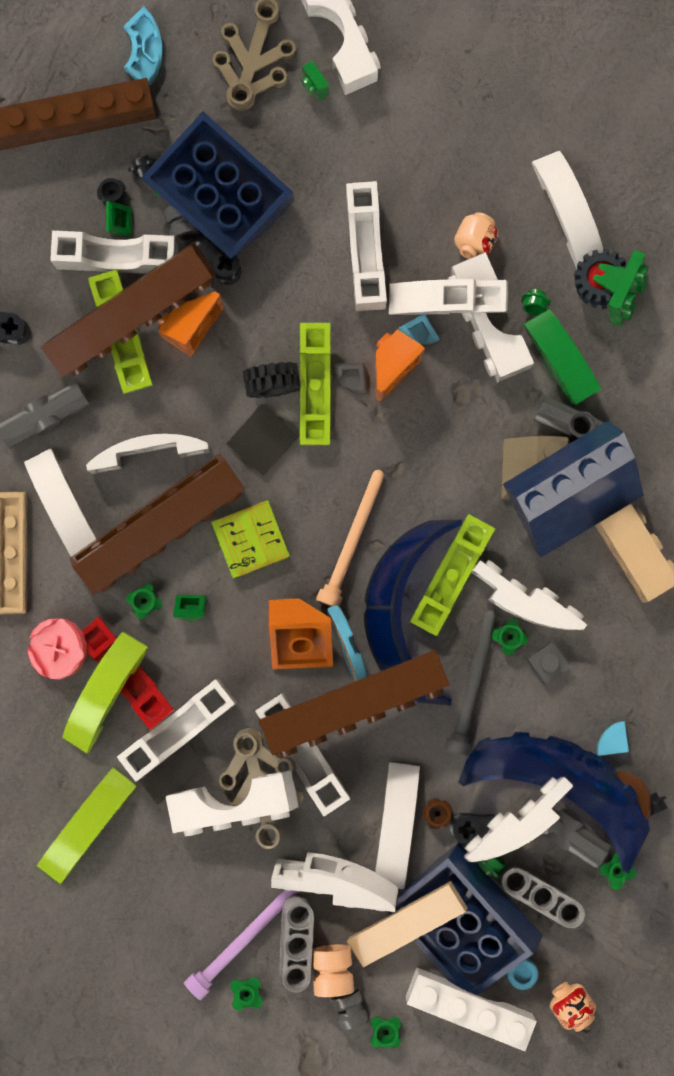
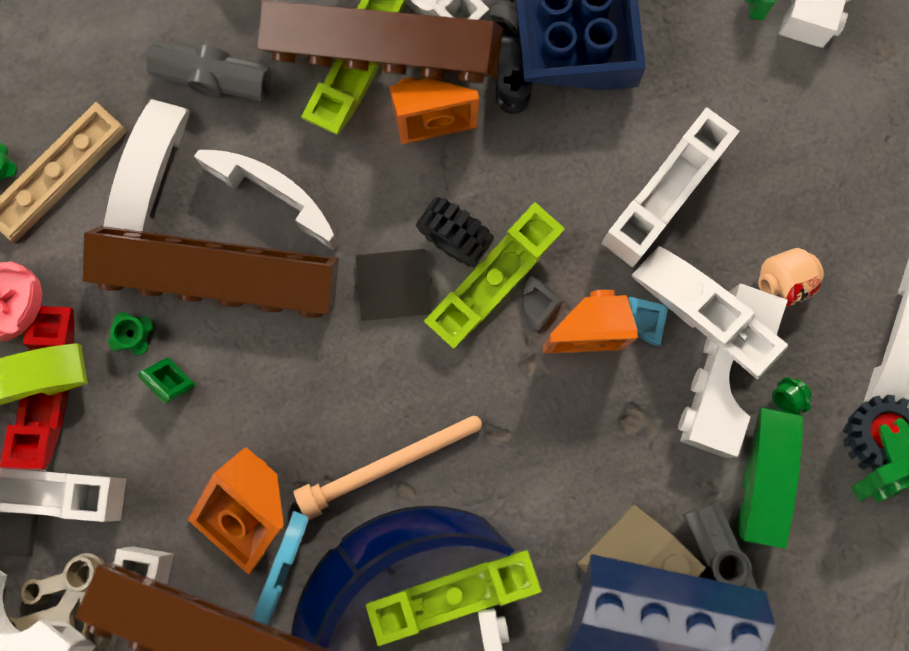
camera: 40 degrees right, 5 degrees down
(250, 539) = (289, 370): lime tile -> none

